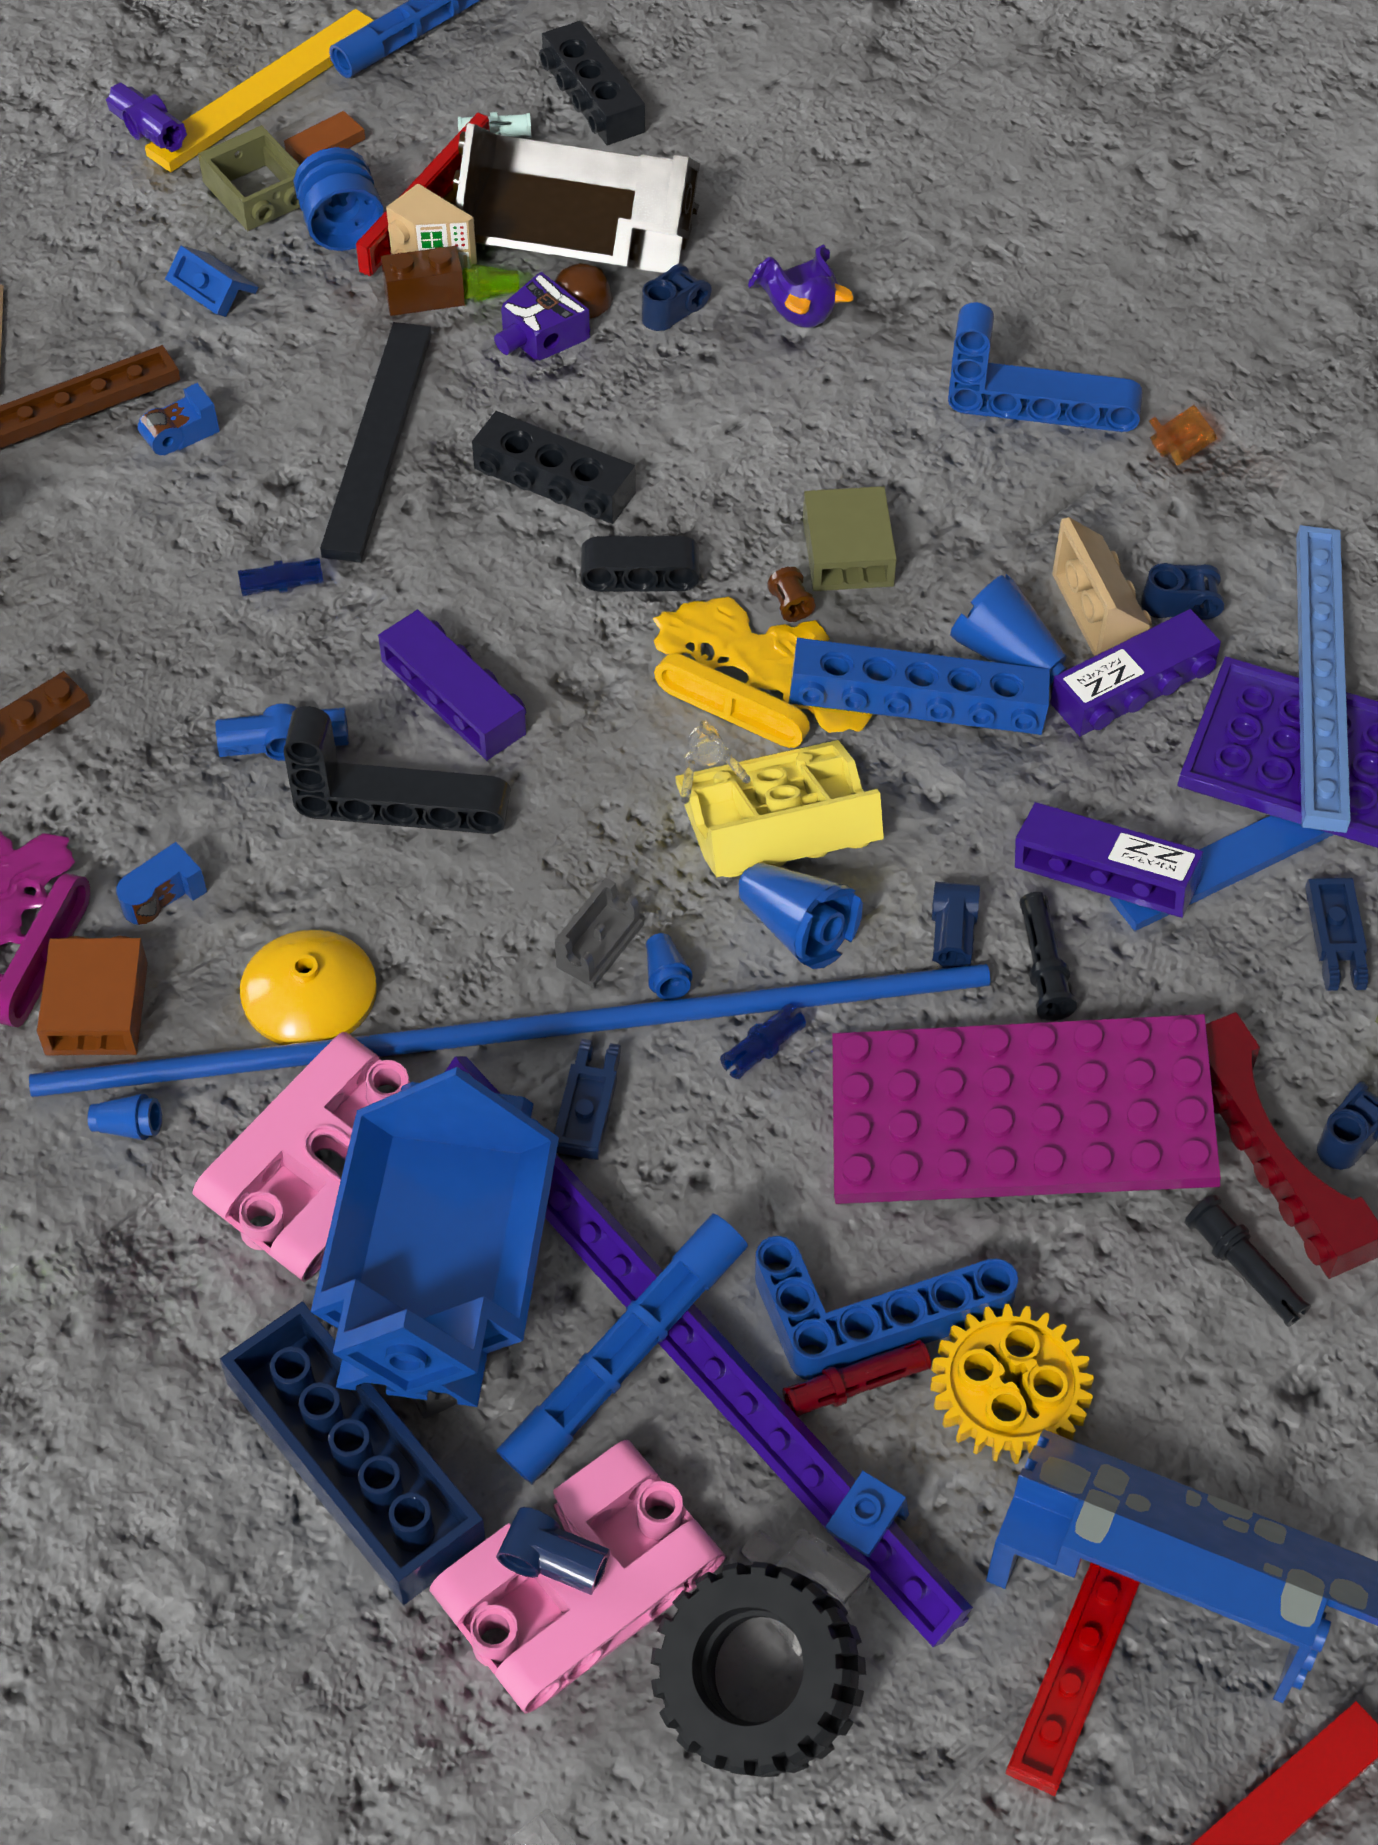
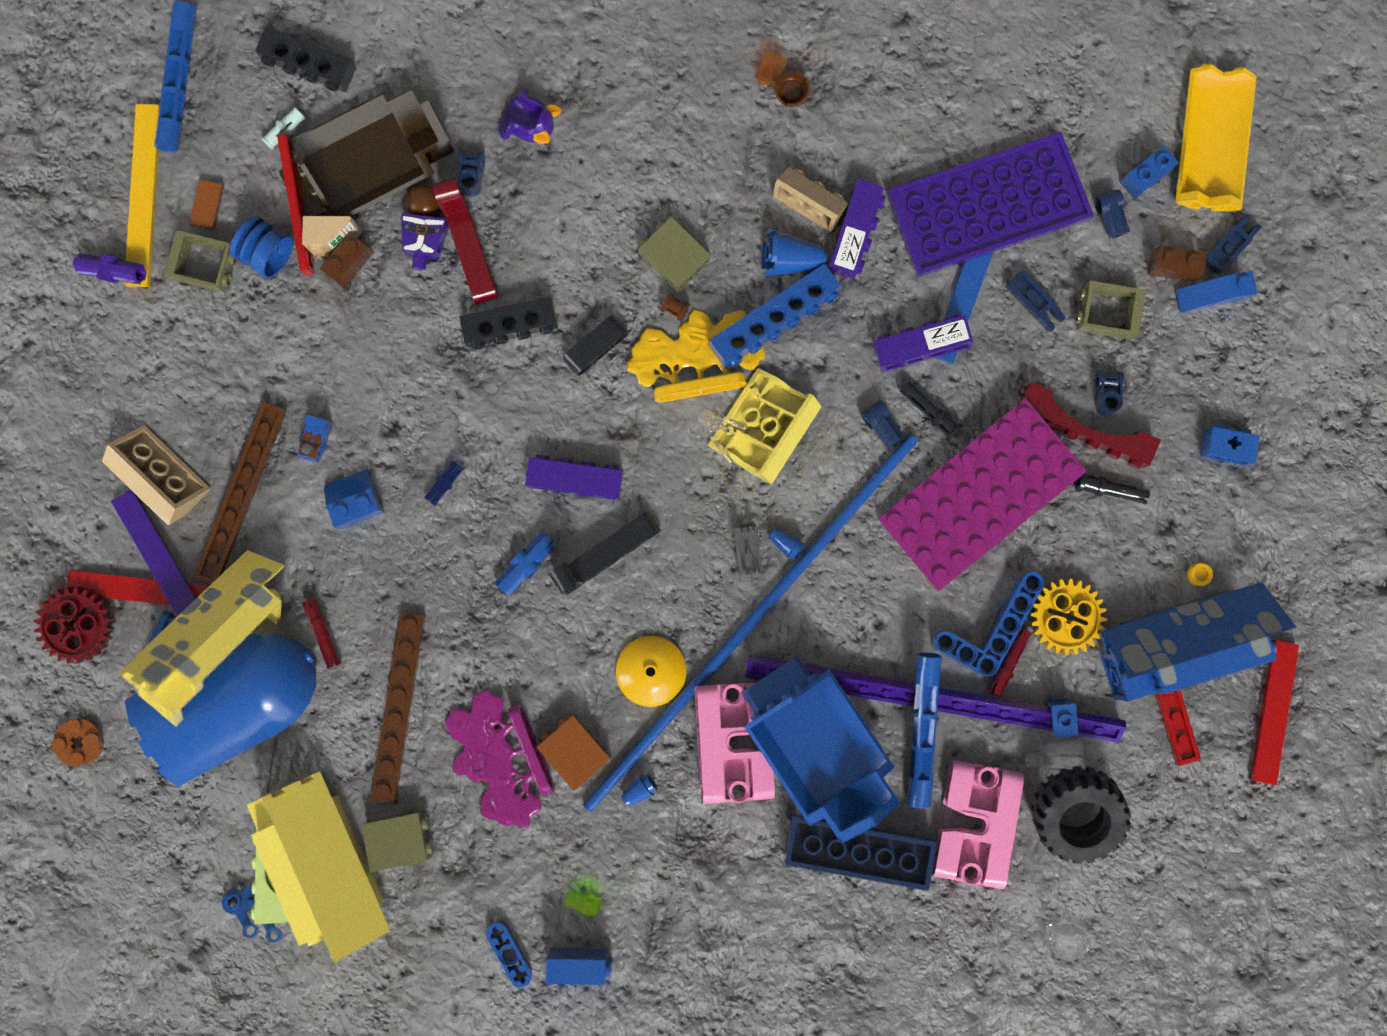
camera: 40 degrees left, 30 degrees up
(145, 518) = (352, 499): none -> blue slope
(158, 884) = (545, 686): blue leg -> none
(207, 279) = (241, 341): blue panel -> none
(376, 443) = (411, 369): black tile -> none
(488, 282) = (376, 233): clear neon green cone -> none
(541, 1547) = (967, 835): dark blue piece -> none
(587, 1102) = (810, 631): dark blue hinge -> none
(599, 341) = (466, 240): none -> dark red beam
(763, 1041) = (854, 545): clear blue pin -> none
(802, 911) = (819, 474): blue cone -> none
(1033, 392) = (663, 110): blue beam -> none
(1178, 588) = (844, 162): dark blue piece -> none
(1190, 471) = (792, 89): none -> reddish brown hair
(1299, 1500) = (1199, 574): none -> yellow tile
(1322, 681) = (939, 171): medium blue plate -> none

